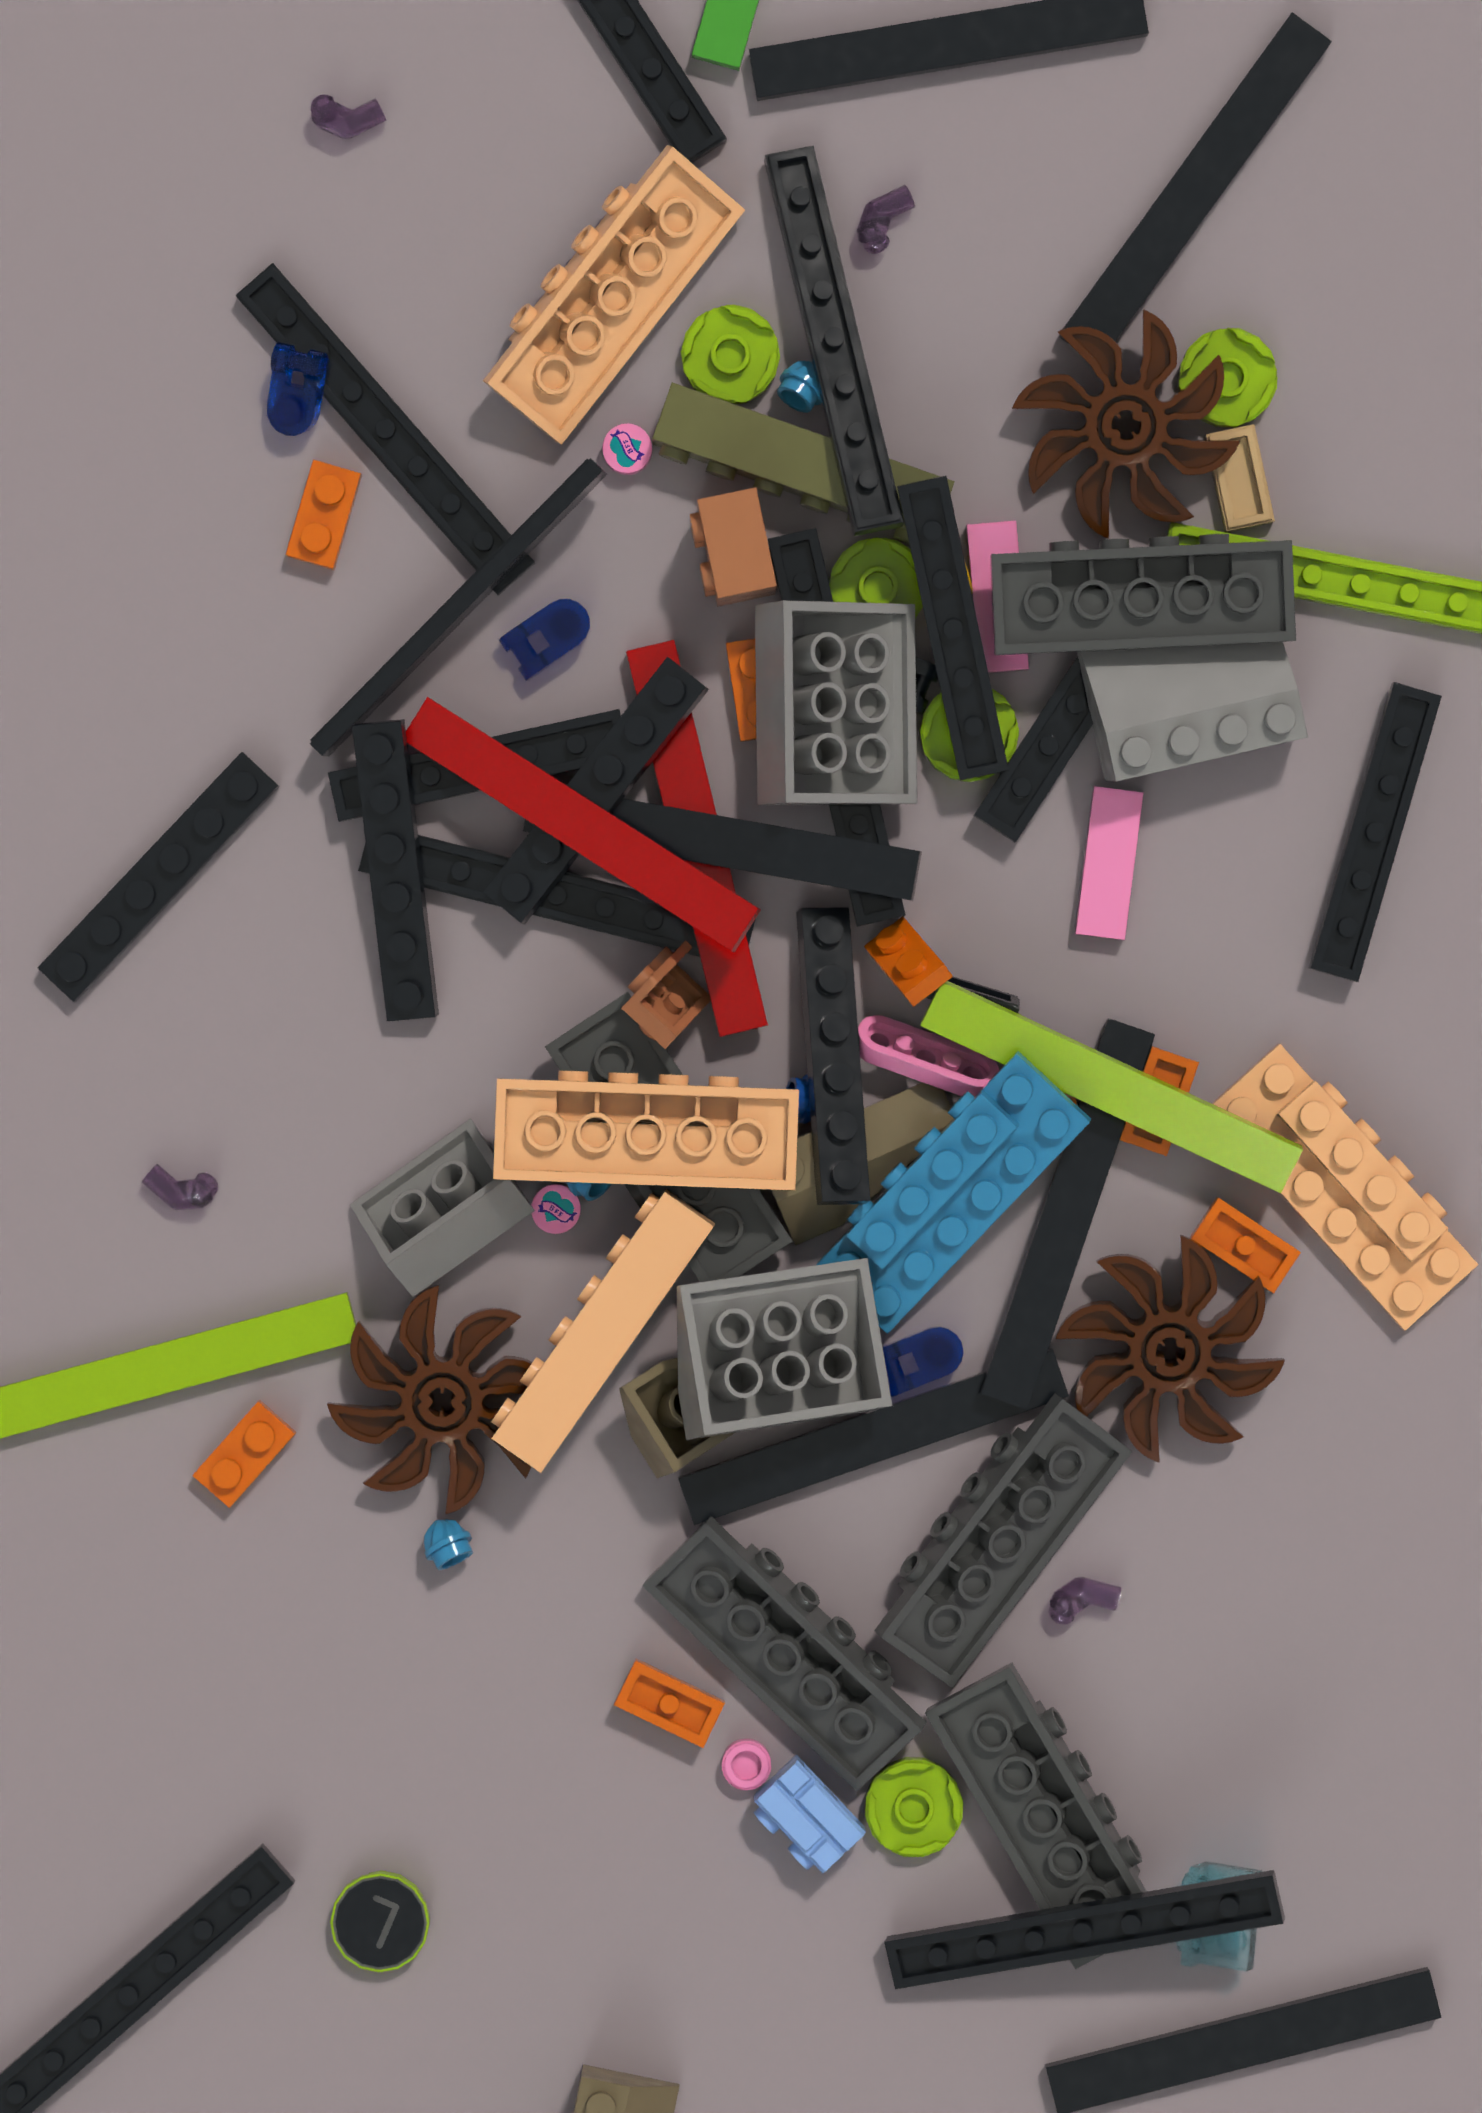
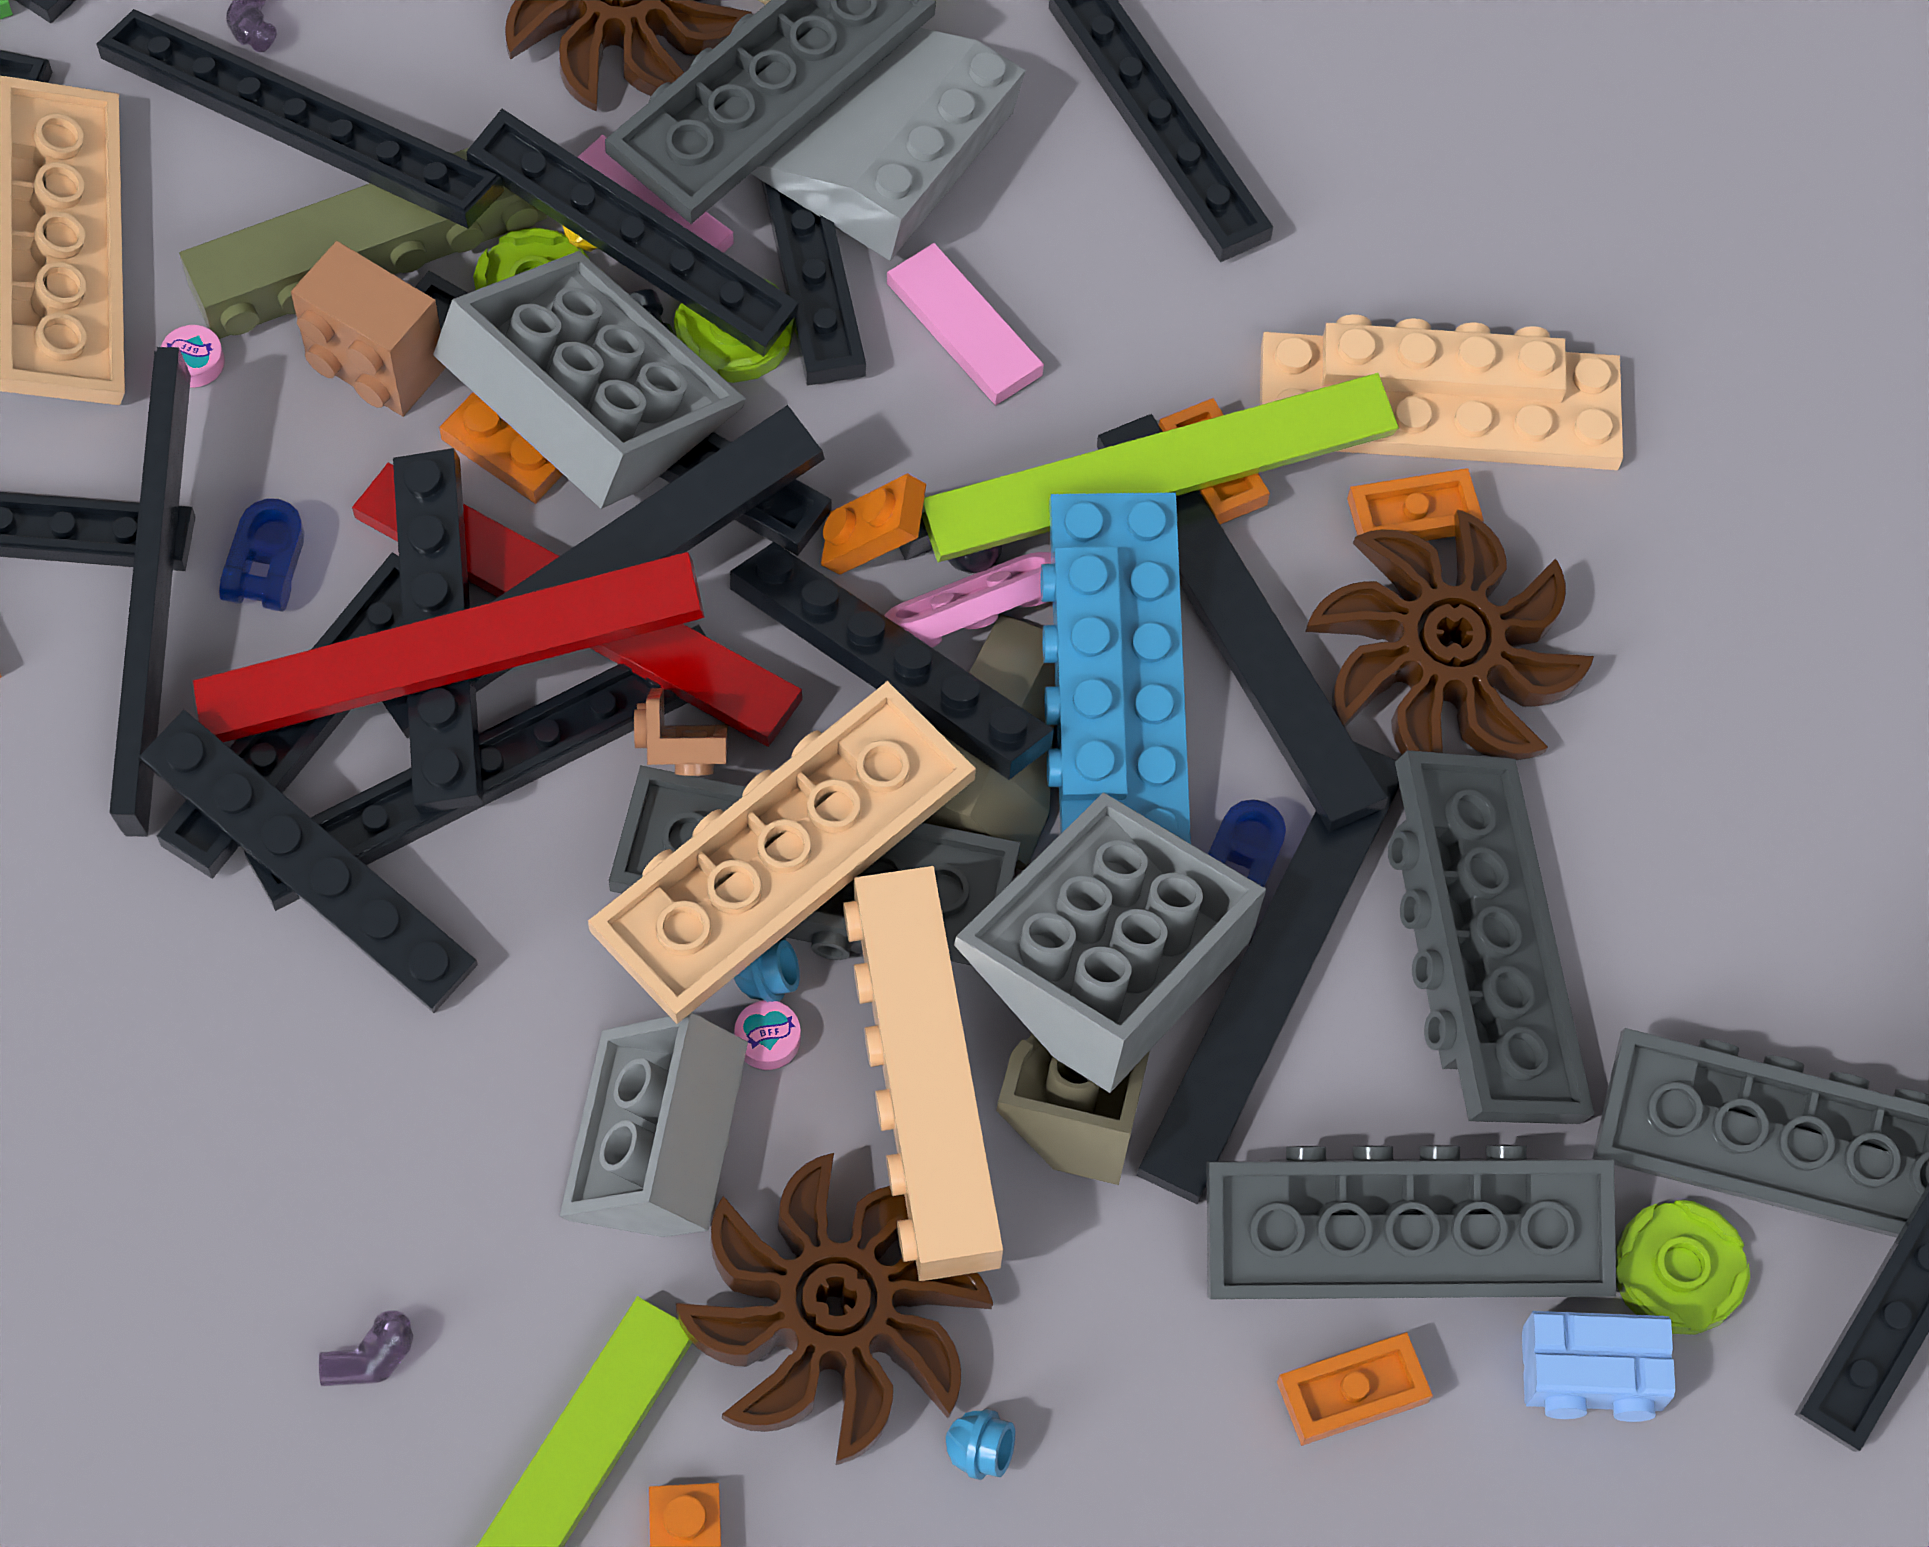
camera: 45 degrees left, 25 degrees down
(158, 877) = (69, 1088): black plate -> none
(730, 354) = (211, 203): lime tile -> none
(746, 1764) = (1487, 1381): bright pink tile -> none
(799, 387) = (305, 181): dark azure plate -> none
(1078, 1595) = (1609, 929): clear purple arm -> none

